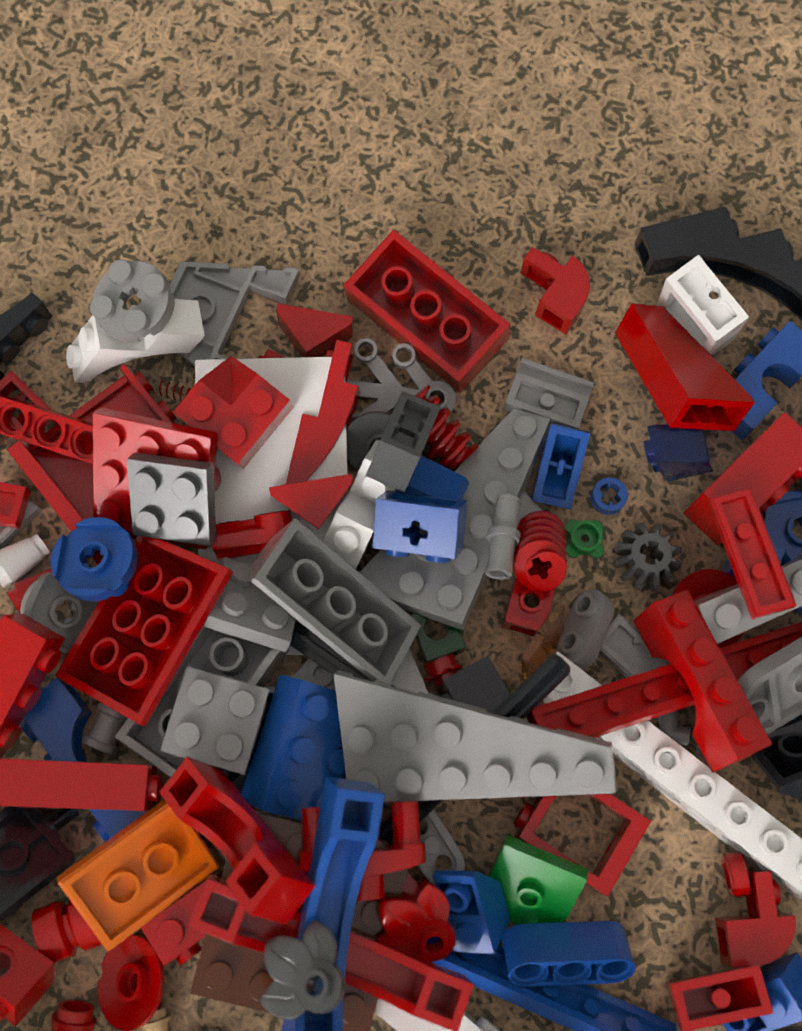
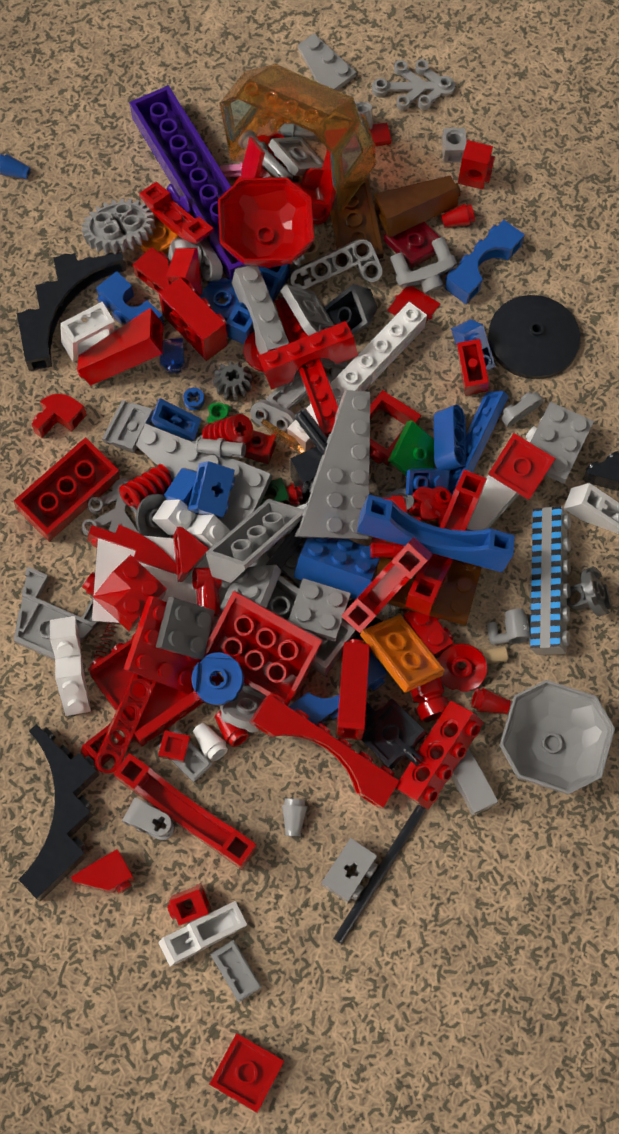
camera: 85 degrees left, 5 degrees down
(104, 730) = (318, 683): light grey bush -> none
(118, 286) = (37, 653): light grey plate -> none
(295, 970) = (455, 549): dark grey plate -> none
(313, 330) = (71, 561): red slope -> none
(403, 441) = (162, 492): dark grey brick -> none
(736, 874) = (411, 354): red tile -> none
(751, 553) = (241, 318): red tile -> none
(762, 933) = (440, 344): red brick -> none

